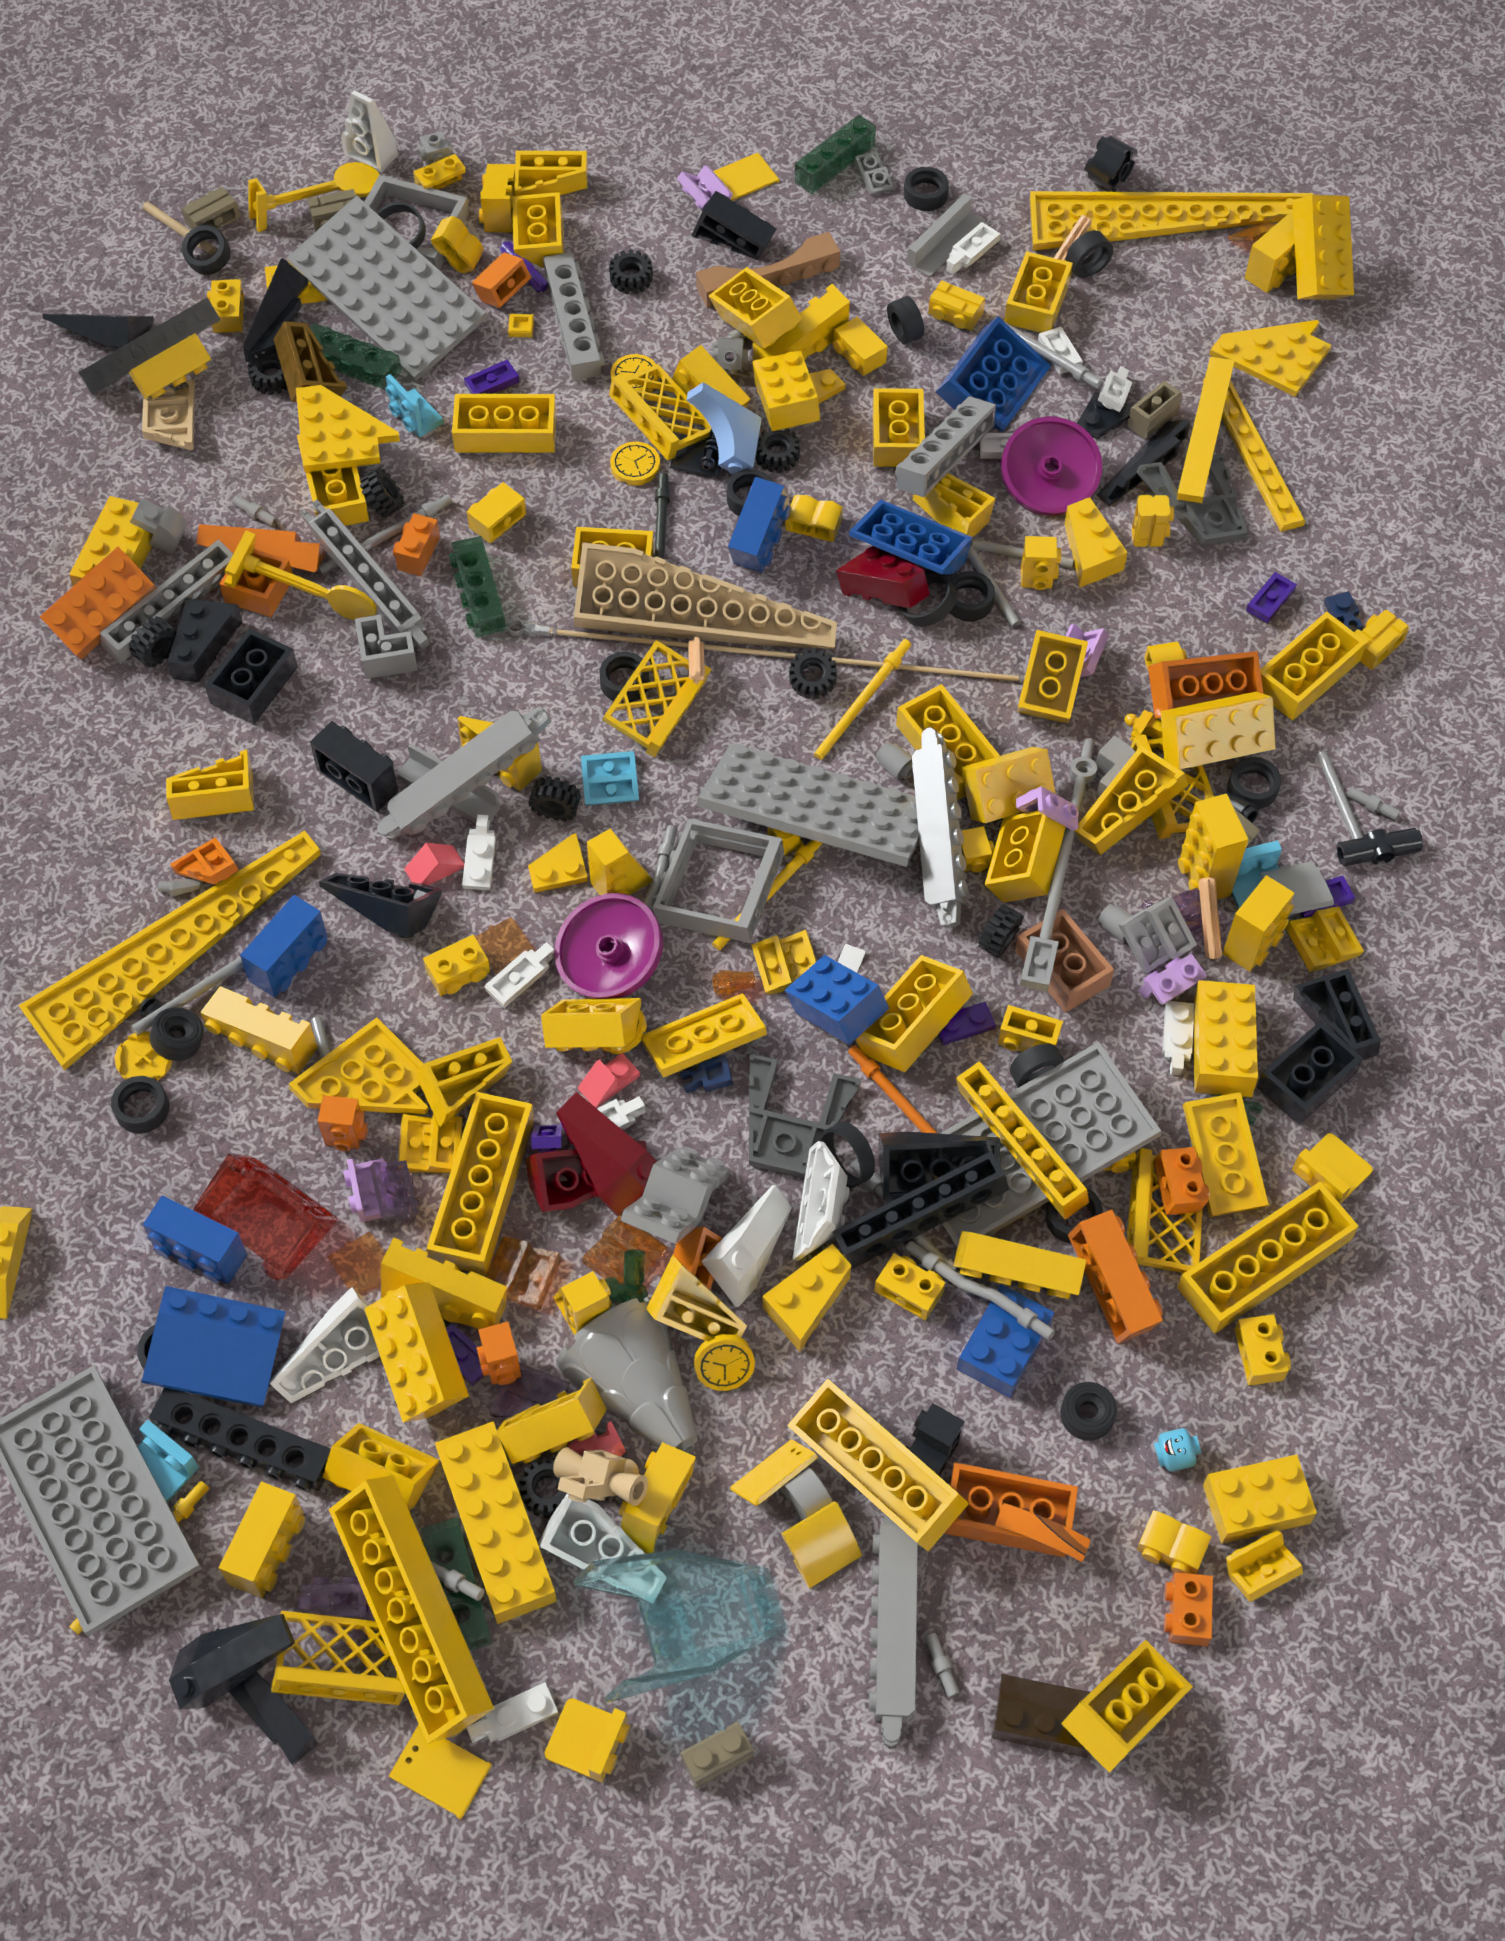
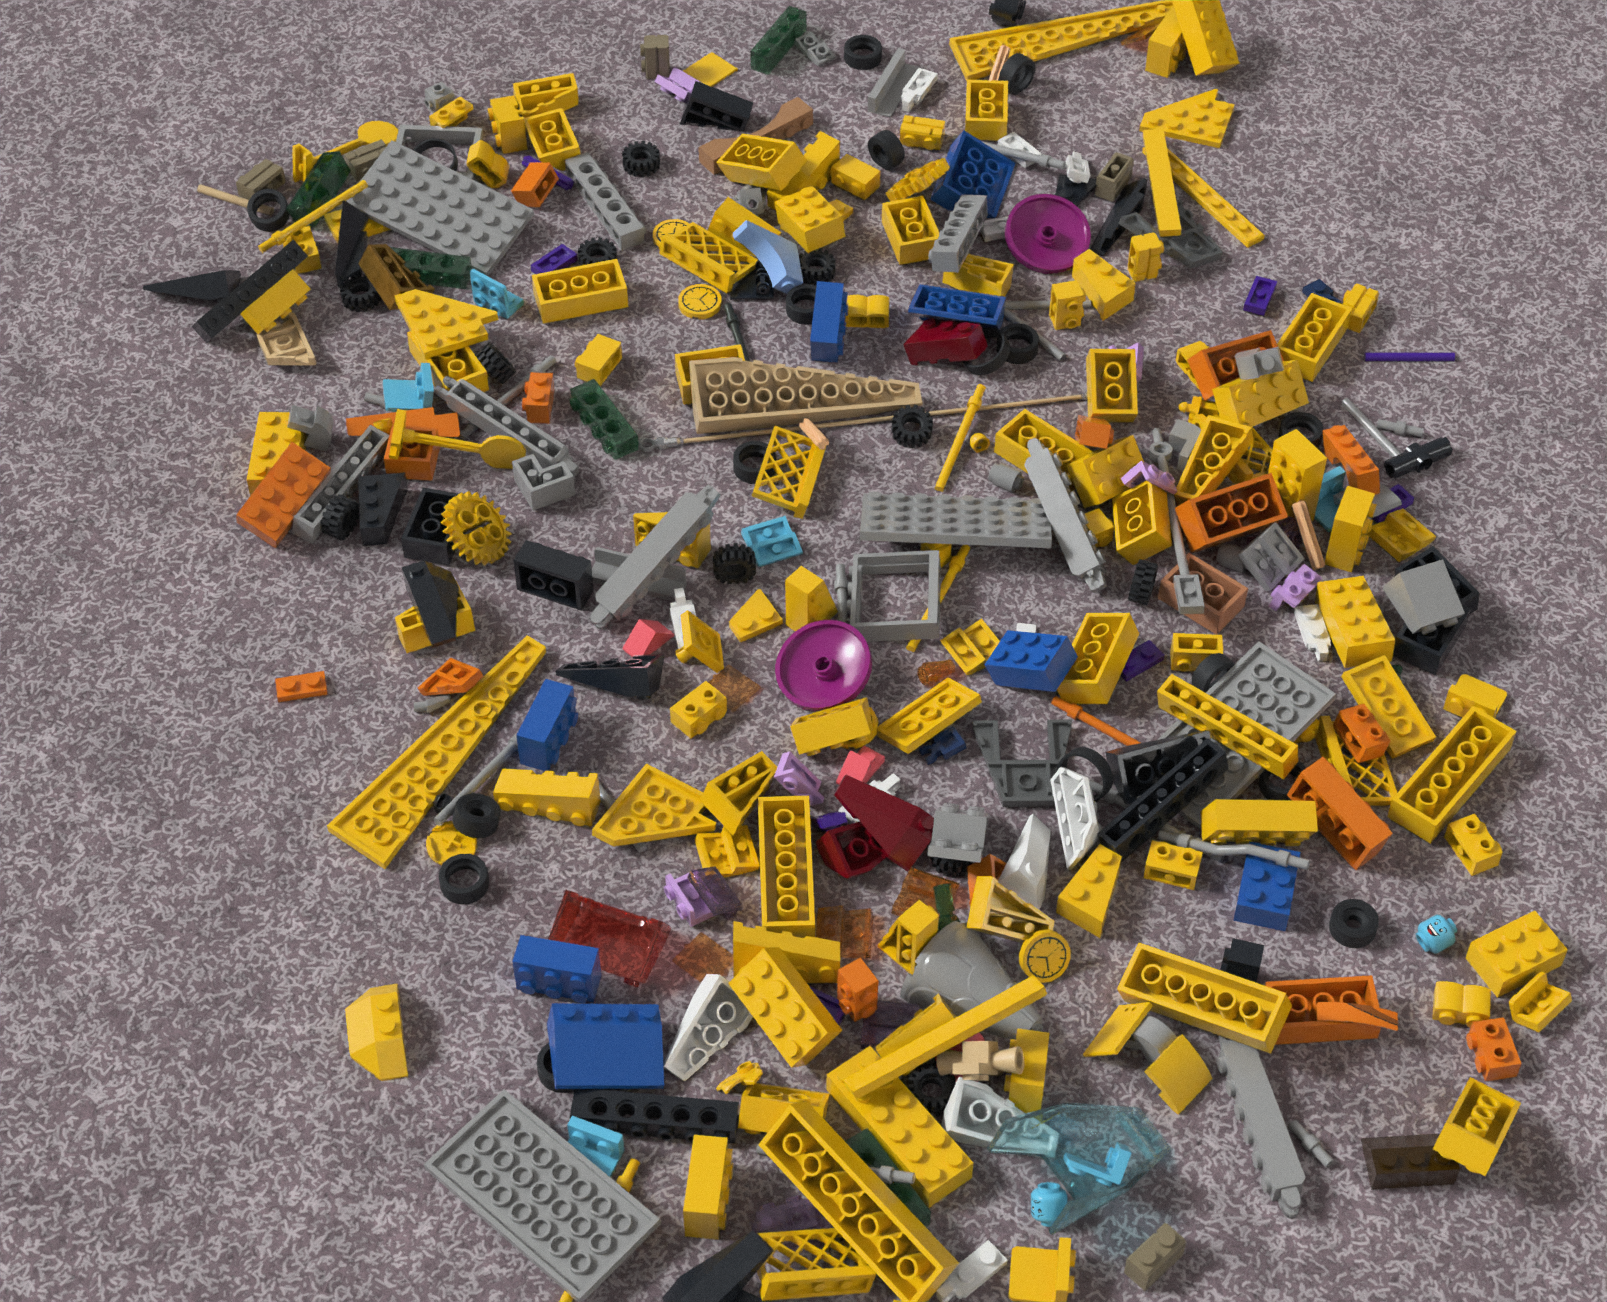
camera: 15 degrees left, 10 degrees down
(50, 832) = (301, 686): none -> orange plate
(200, 288) = (279, 237): none -> yellow bar
(211, 769) = (434, 599): none -> black wedge
(232, 541) = (384, 425): none -> yellow hinge
(267, 236) = (319, 186): none -> clear green brick
(276, 508) = (409, 393): none -> medium azure bracket
(283, 666) = (469, 512): none -> yellow gear
(342, 1123) = (650, 849): orange brick -> none
(352, 1418) = (747, 1074): none -> yellow plate
(367, 134) = (380, 93): white wedge -> none
(485, 886) = (700, 642): none -> yellow tile
(519, 975) = (754, 706): white hinge -> none
(521, 325) = (562, 217): yellow tile -> none
(531, 1079) = (798, 779): none -> lavender bracket
(540, 372) = (596, 247): none -> black tyre
(568, 1440) = (944, 1037): none -> yellow tile
(623, 1659) = (1048, 1202): none -> medium azure head
(685, 1638) = (1116, 1160): none -> medium azure bracket
(688, 148) = (656, 56): none -> dark tan brick
(882, 706) = (977, 440): none -> yellow hinge
(925, 367) = (918, 180): none -> yellow gear
(1006, 733) = (1093, 432): none -> orange brick
(1126, 872) = (1231, 513): none -> orange brick
(1219, 693) = (1254, 363): none -> light grey brick
(1296, 839) = (1343, 448): none -> orange arch
(1310, 1036) = (1425, 597): none -> light grey slope
(1419, 714) = (1411, 356): none -> dark purple bar

